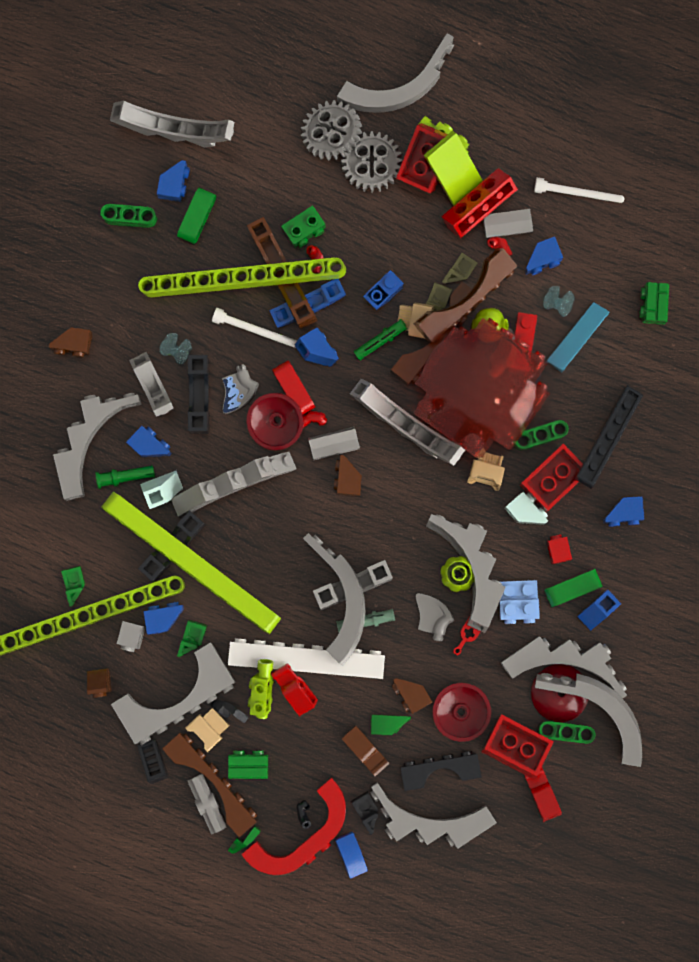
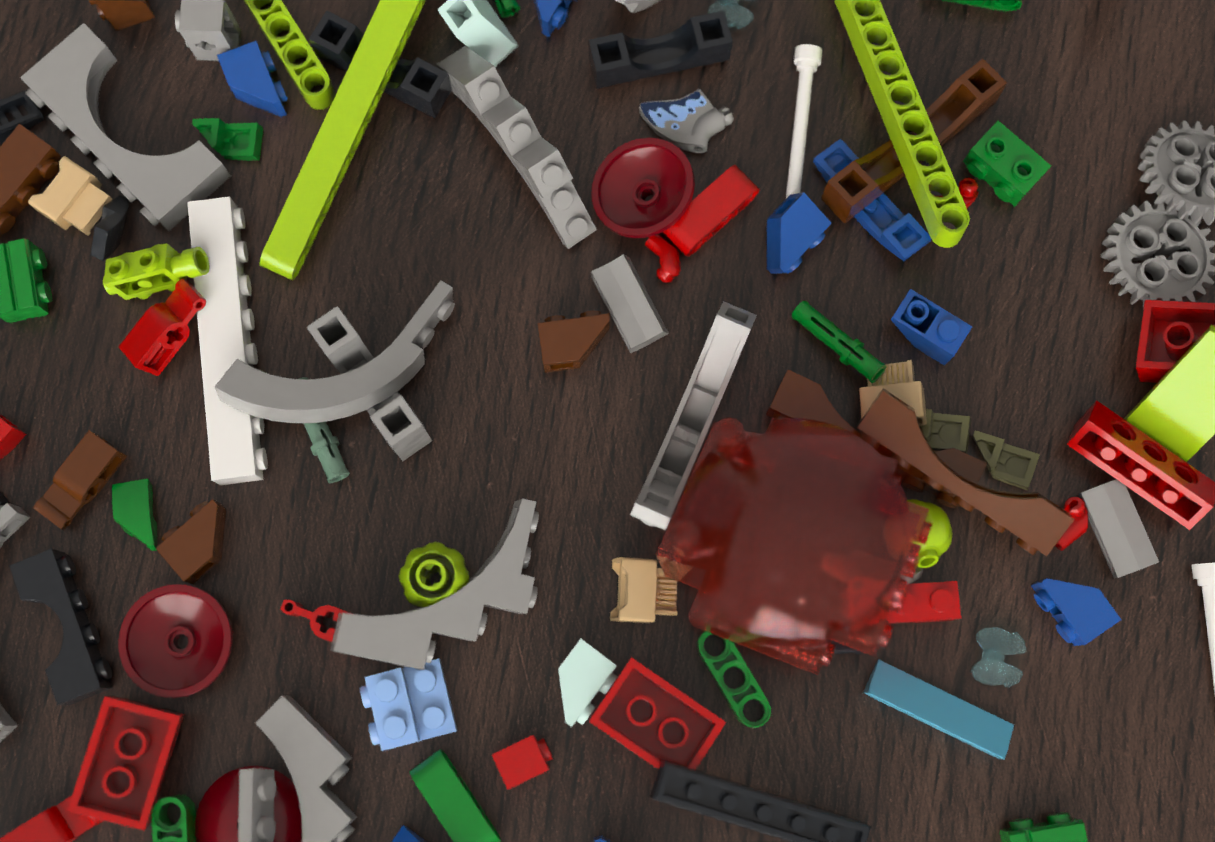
camera: 75 degrees right, 5 degrees down
(433, 616) = (351, 552): light grey arm -> none

